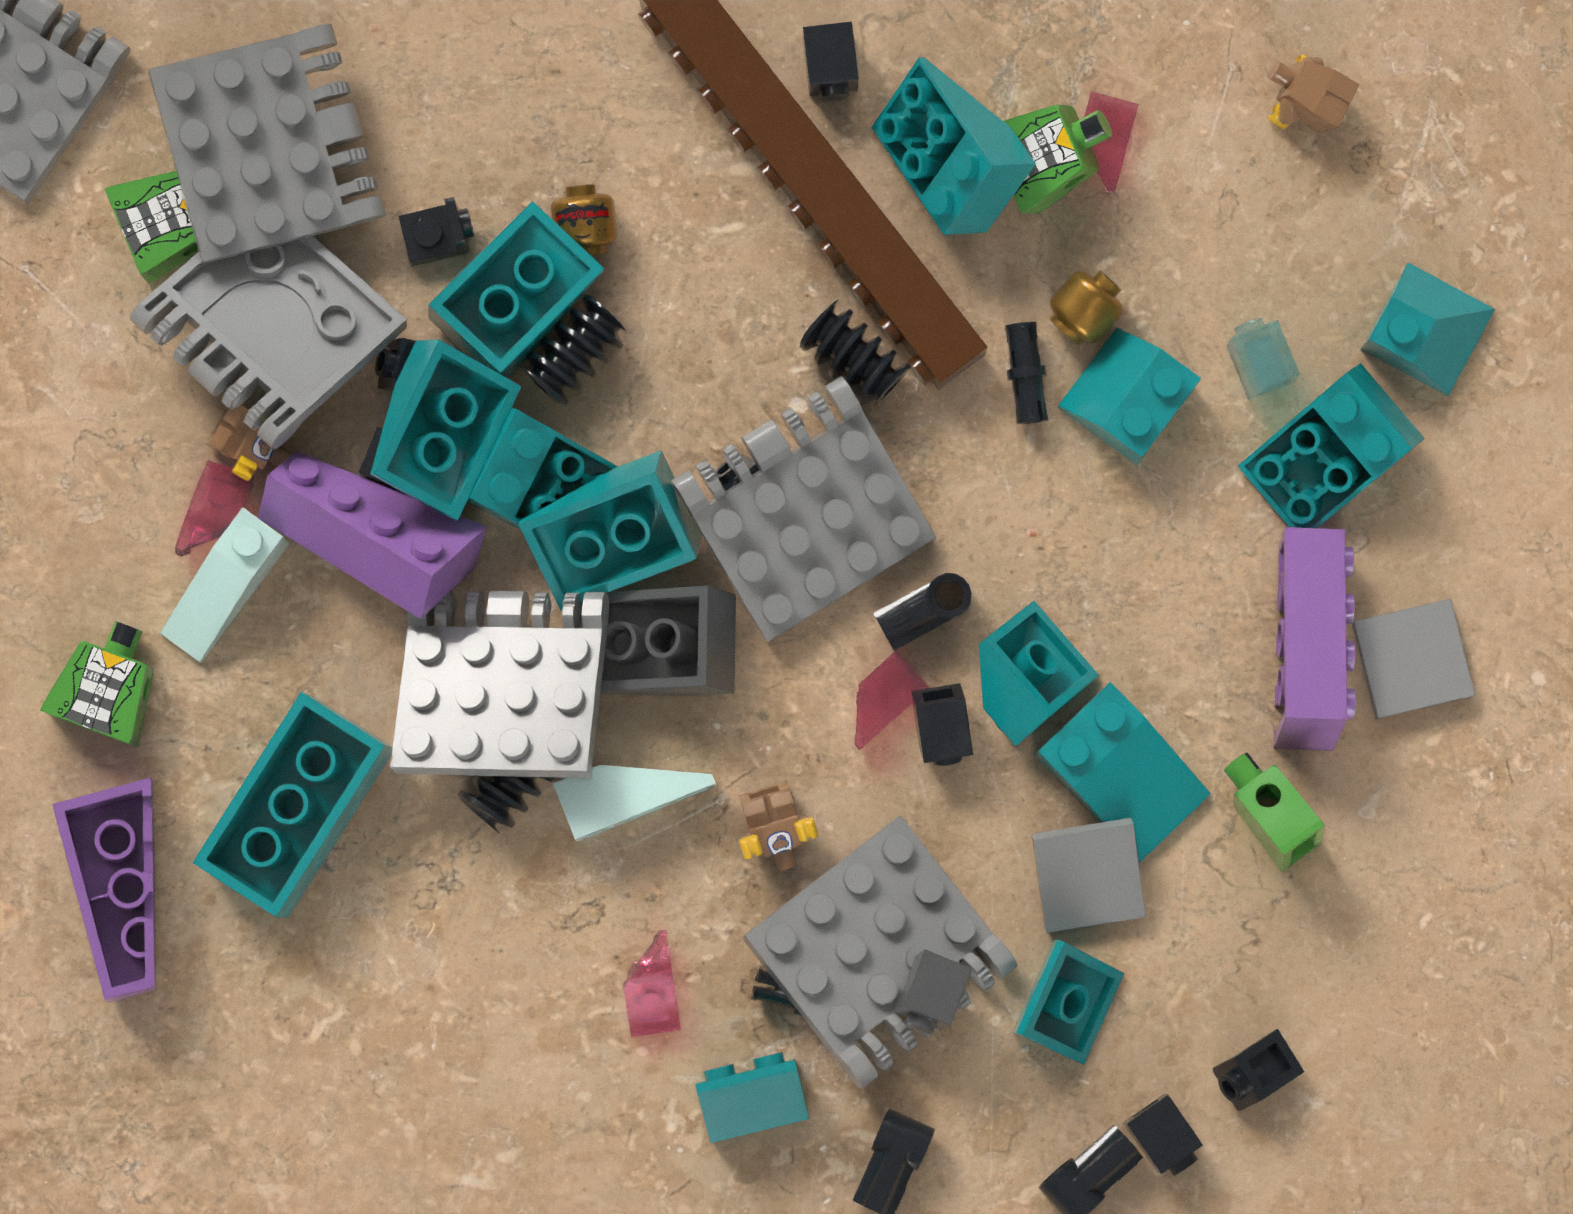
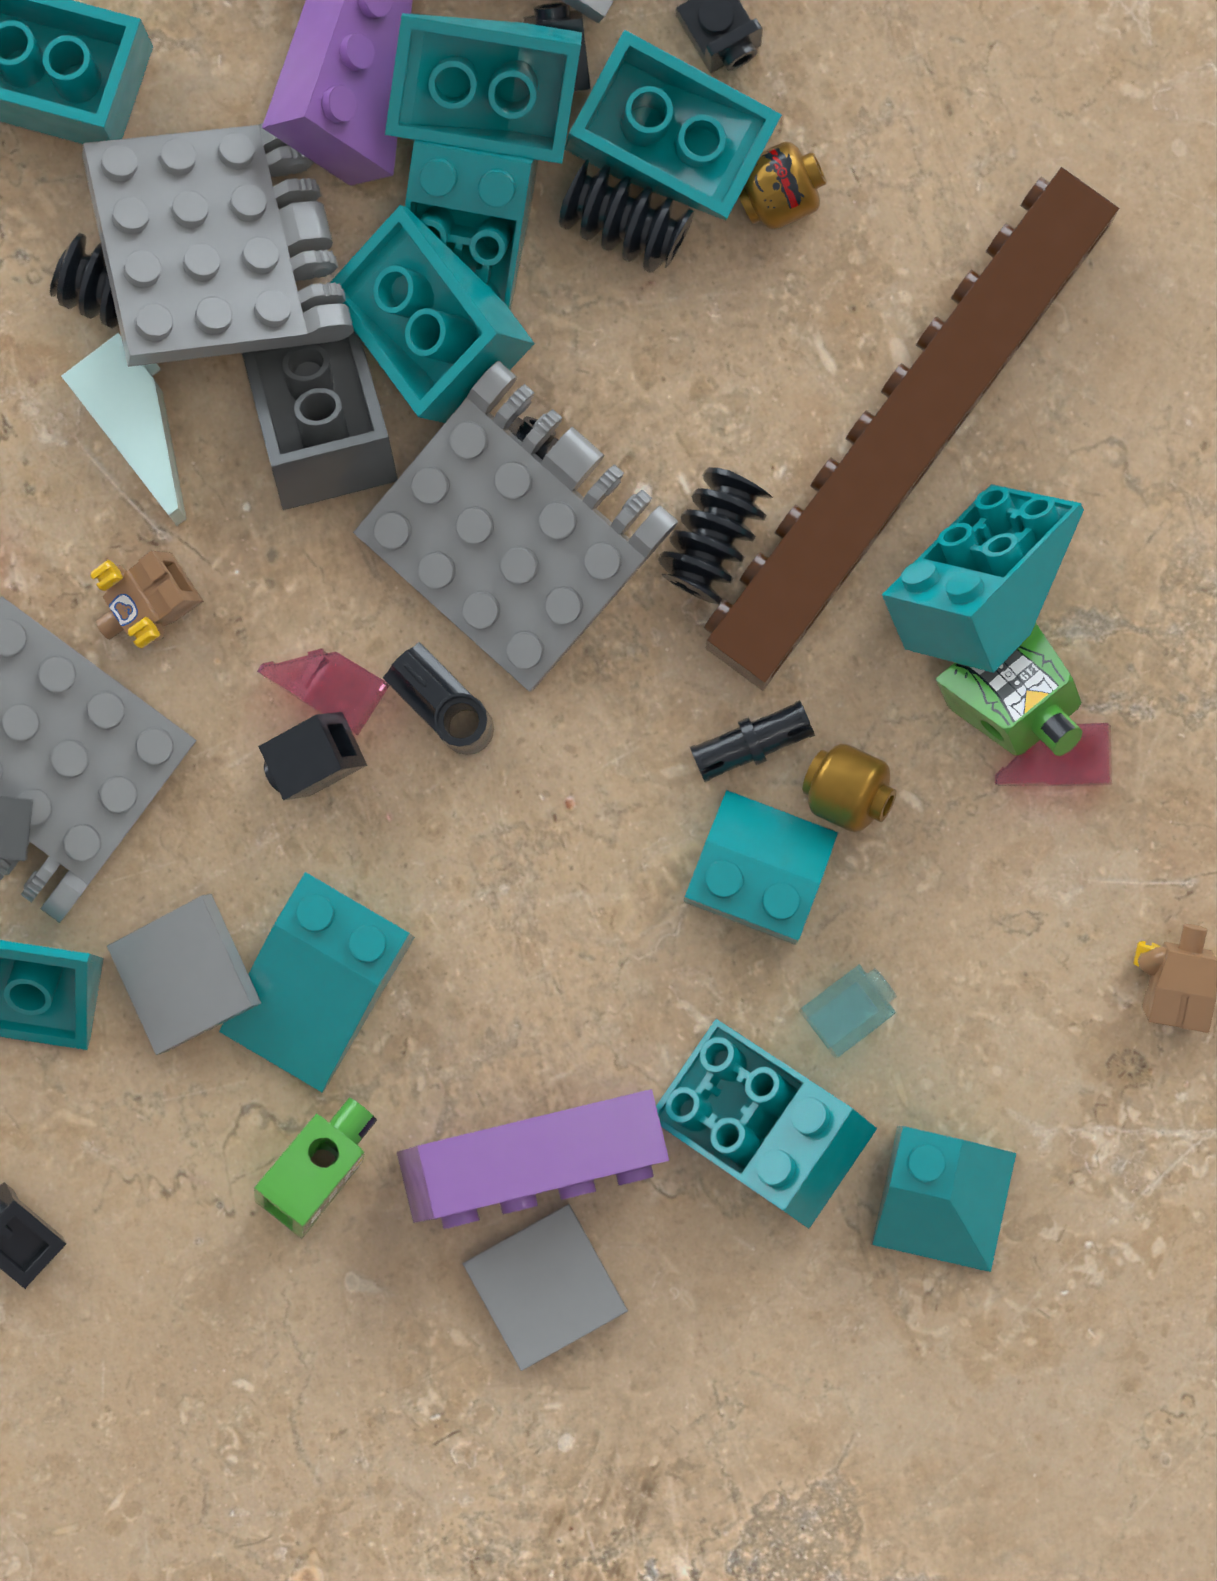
camera: 80 degrees right, 0 degrees up
(830, 60) = (1053, 412): black brick -> none
(1029, 672) = (402, 840): teal slope -> none

